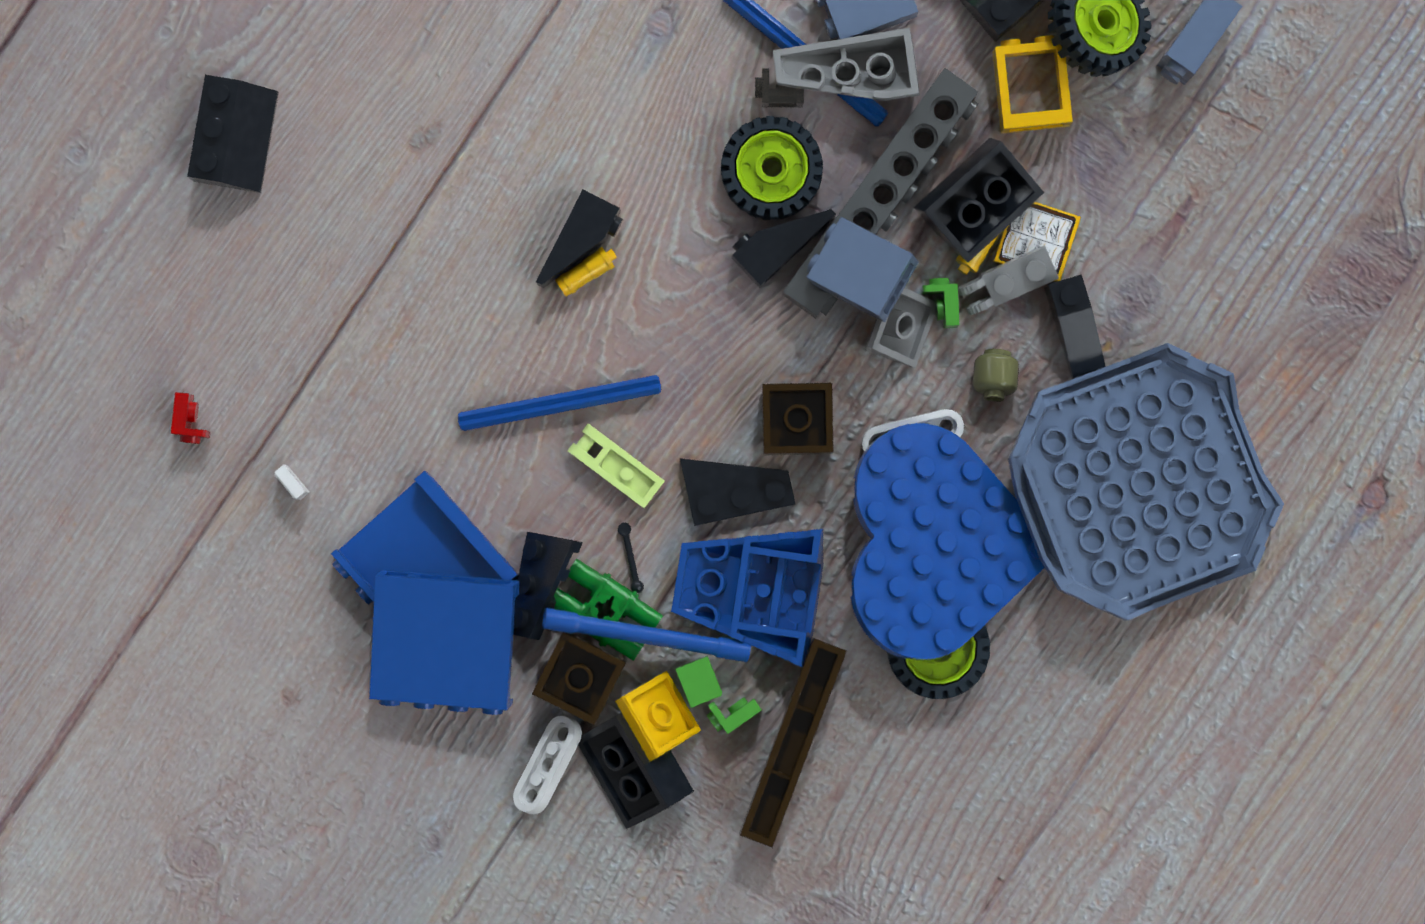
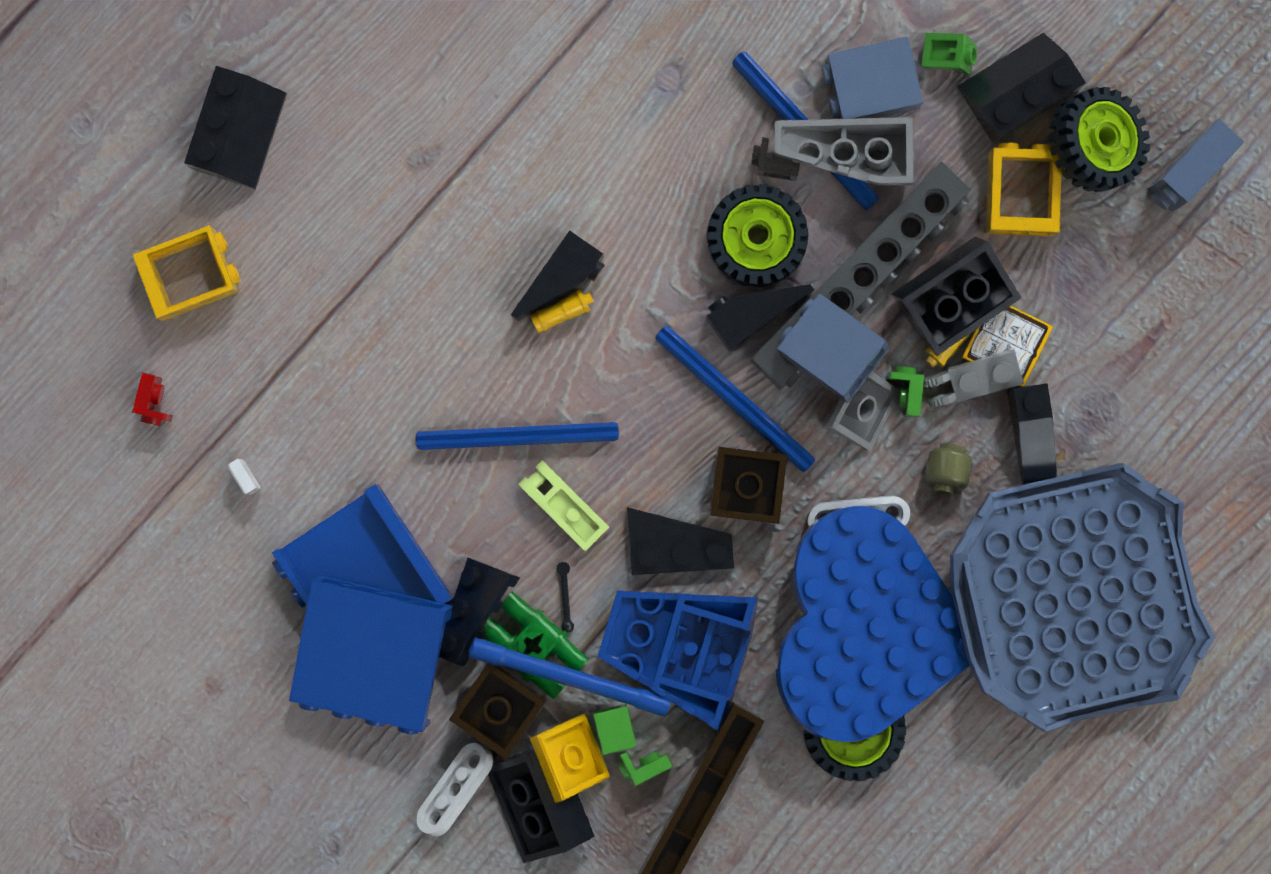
camera: 10 degrees right, 0 degrees up
(172, 300) = (153, 282): none -> yellow window
(772, 334) = (735, 398): none -> blue axle

